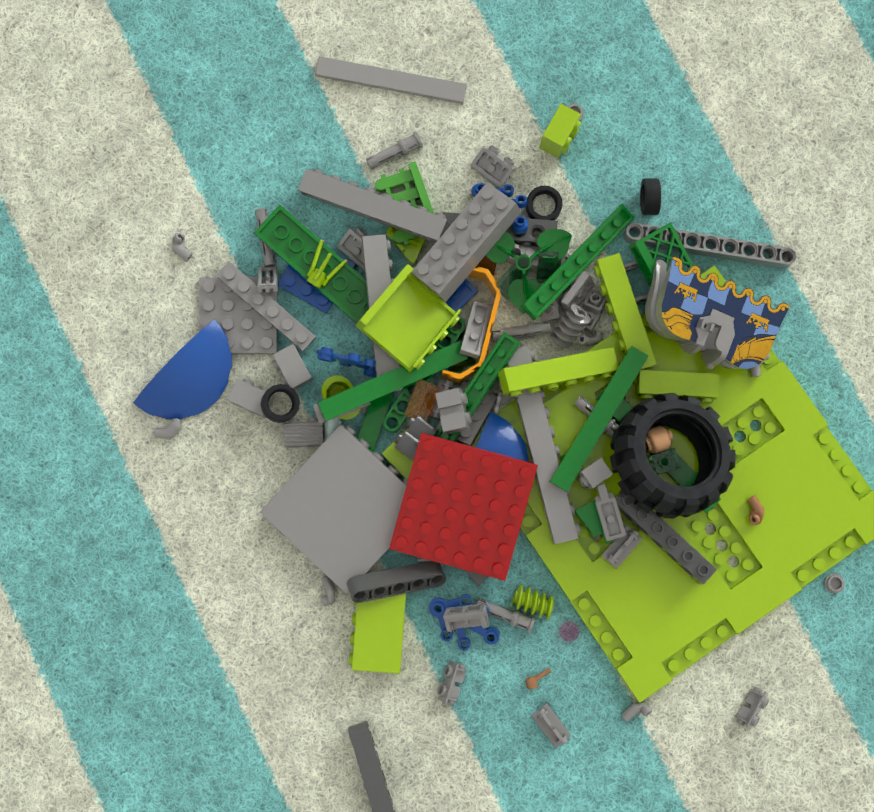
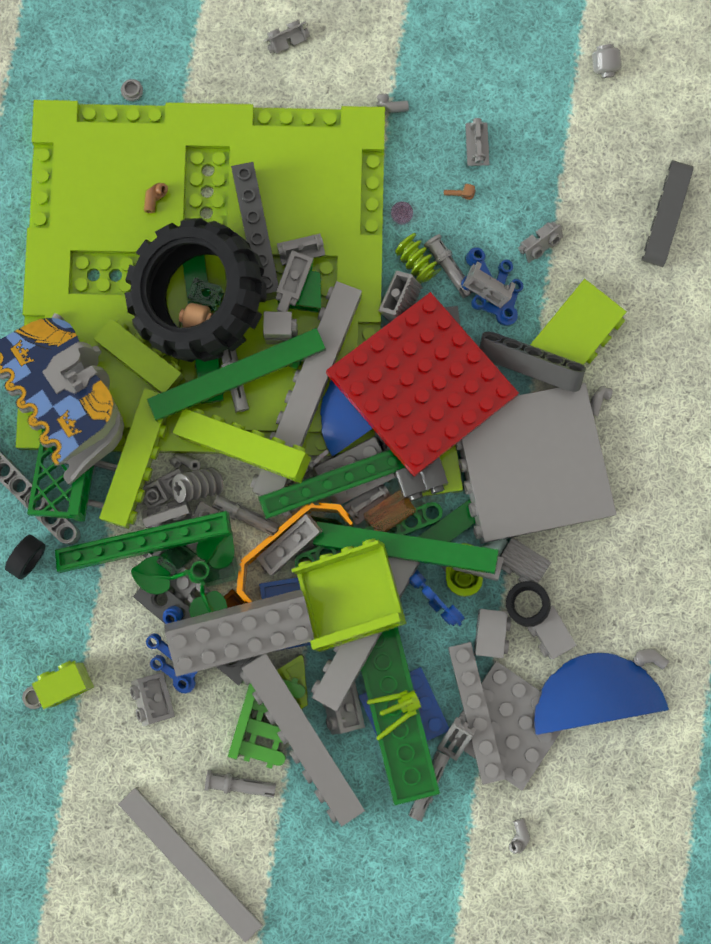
camera: 140 degrees left, 0 degrees up
(453, 411) = (369, 475): light grey brick -> none
(525, 564) = (400, 295): none -> light grey brick
(548, 191) = (115, 624): black tyre -> none

